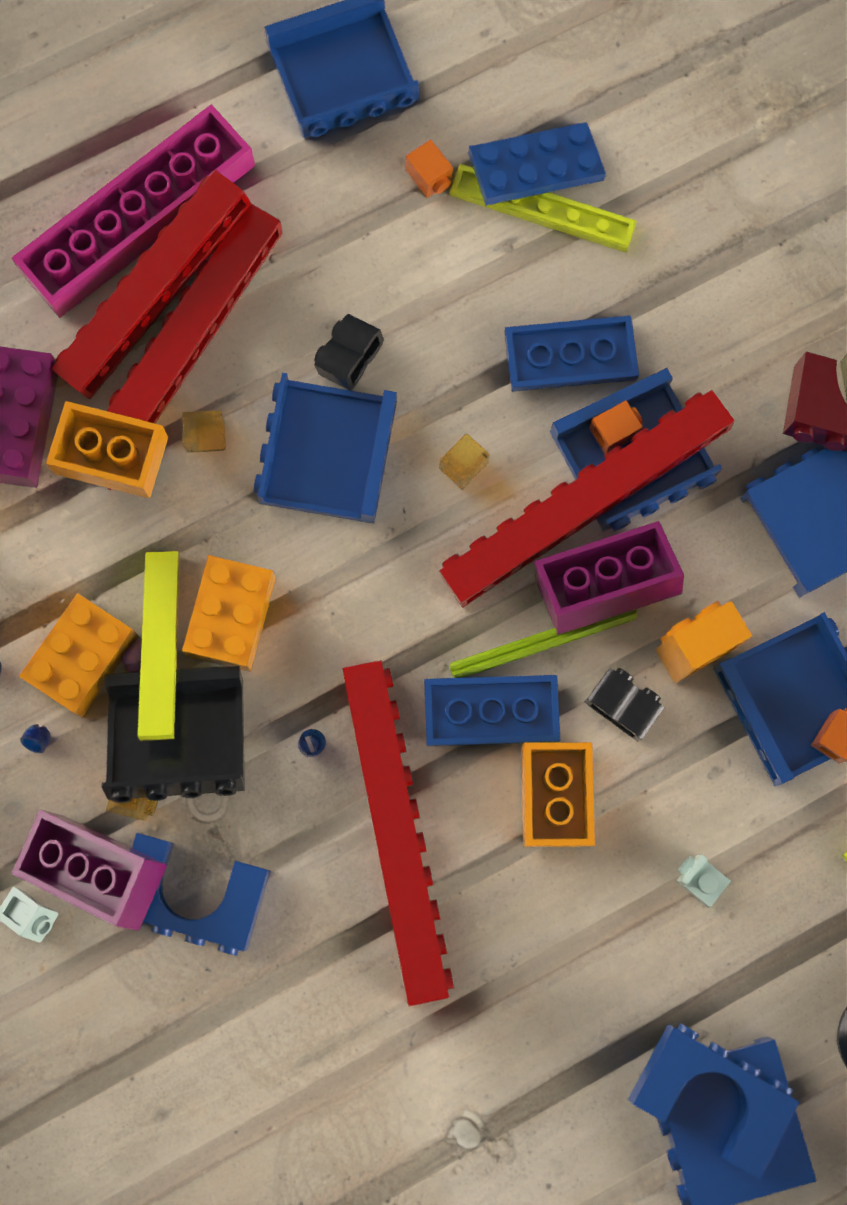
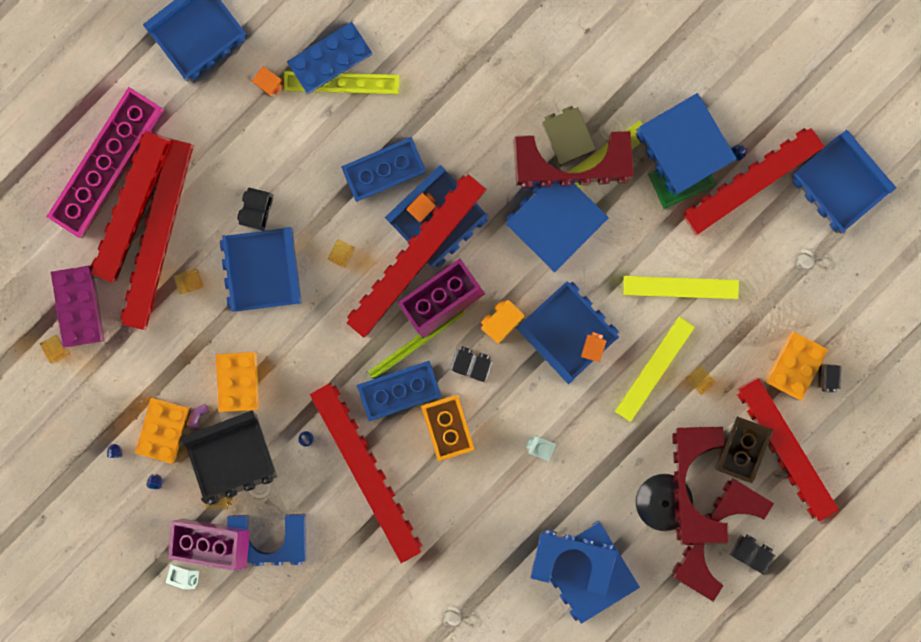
camera: 15 degrees left, 10 degrees up
(107, 449) = (140, 314): light orange brick -> none
(159, 646) = (204, 411): neon yellow tile -> none

